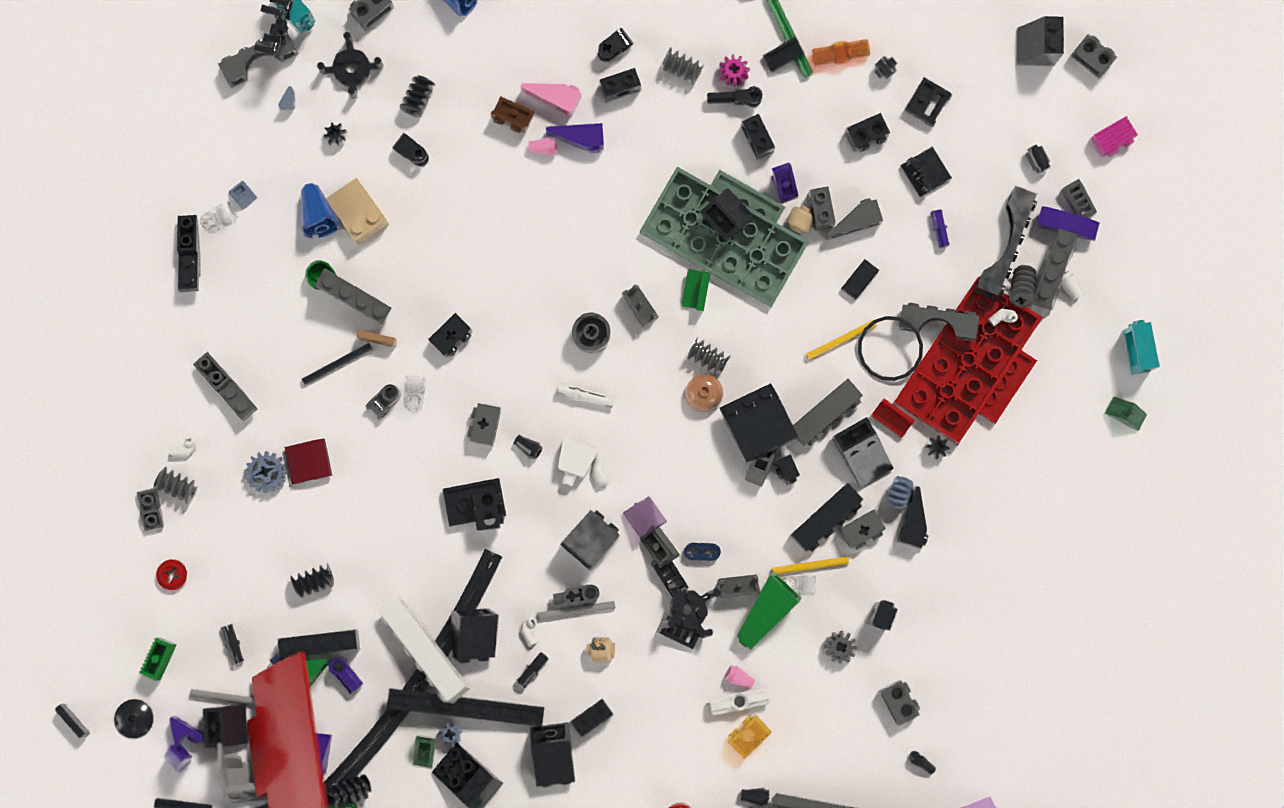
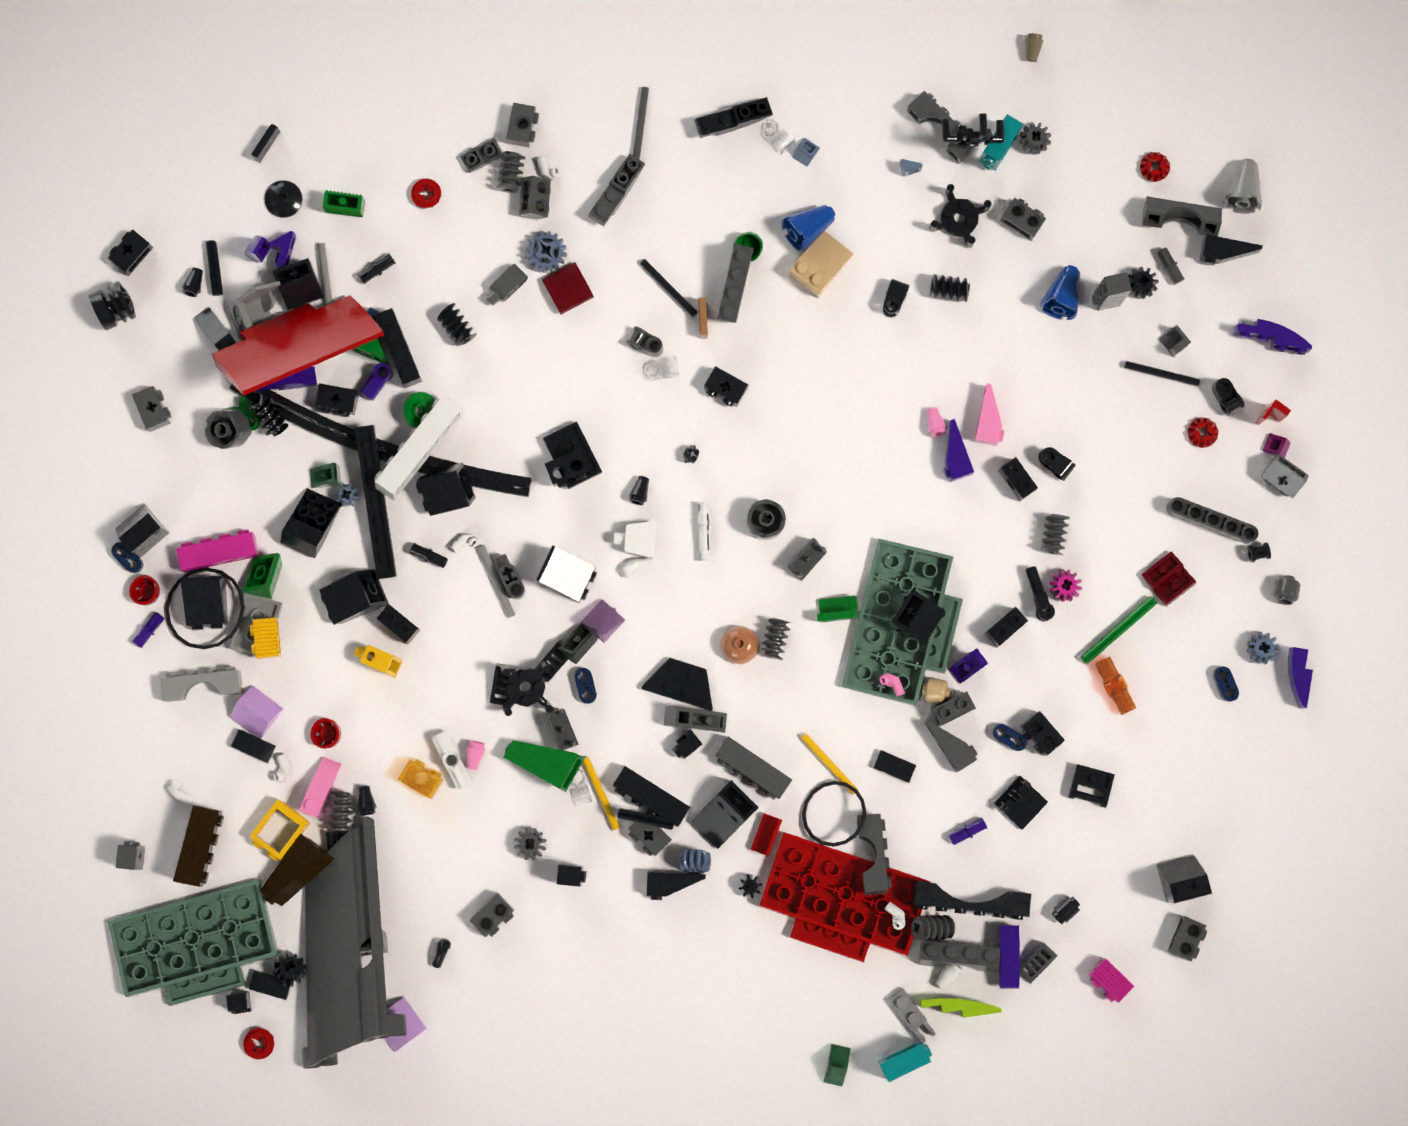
camera: 80 degrees right, 0 degrees up
(140, 469) = (519, 114): none -> dark grey brick
(165, 345) = (640, 122): none -> dark grey bar
(208, 468) = (534, 197): none -> dark grey brick
(287, 520) = (506, 284): none -> dark grey piece
(340, 136) = (887, 226): black gear -> none
(343, 724) = (328, 393): none -> black brick
(381, 633) = (418, 399): none -> green dish
(492, 416) = (657, 449): dark grey brick -> none
(506, 387) = (691, 454): none -> black plate
(512, 114) = (958, 384): reddish brown bracket -> none
(601, 649) = (465, 615): tan head -> none
(626, 742) = (378, 660): none -> yellow torso
(721, 462) = (682, 683): none -> black wing
(758, 422) = (723, 704): black slope -> none
(780, 257) = (892, 681): none -> bright pink arm
(784, 54) = (1096, 630): black tile -> none
(848, 528) = (645, 819): none -> black axle
(864, 167) = (1012, 733): none -> dark blue beam
(886, 67) = (1113, 734): black gear -> none
(1096, 331) = (910, 1014): none -> light grey hinge
(1105, 276) = (967, 1007): none -> lime slope

